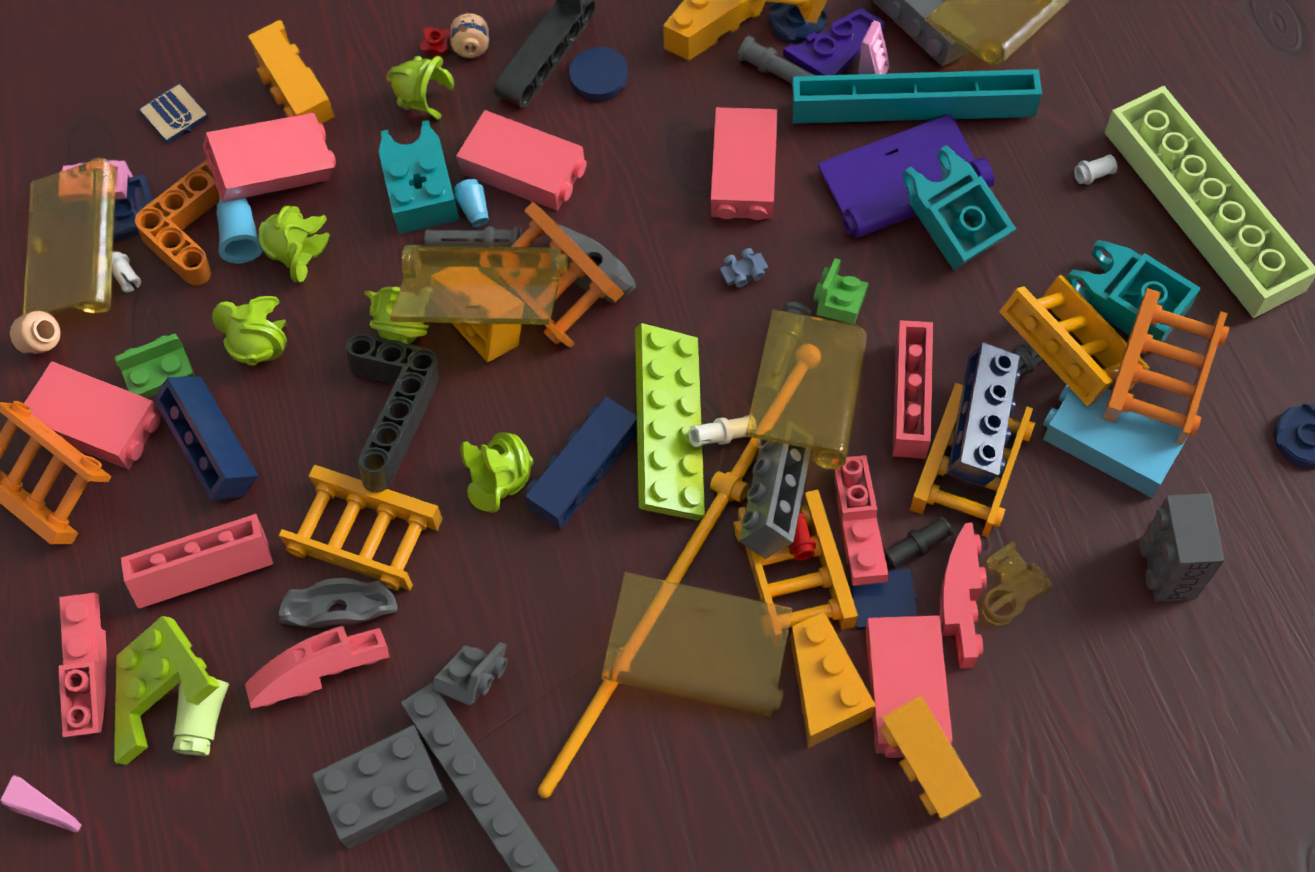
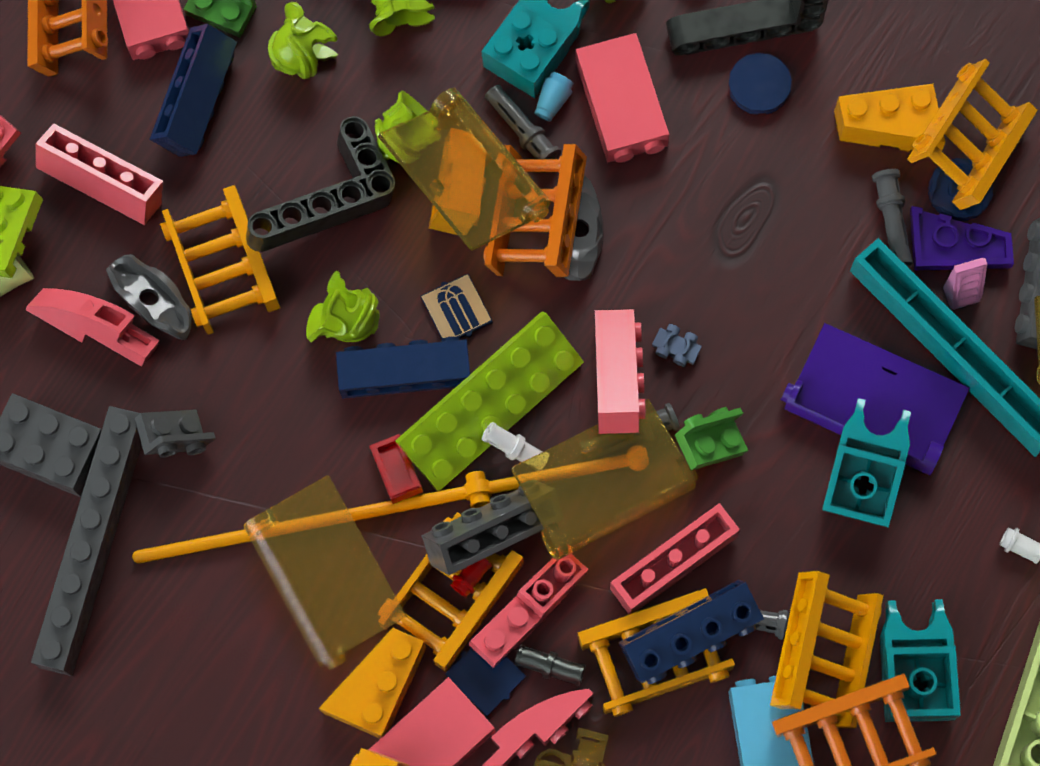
camera: 50 degrees right, 10 degrees up
(568, 393) = (456, 308): none -> piece
(658, 531) = (396, 470): none -> red tile
(733, 312) = (617, 371): none -> coral brick
(744, 163) = (772, 266): coral brick -> none

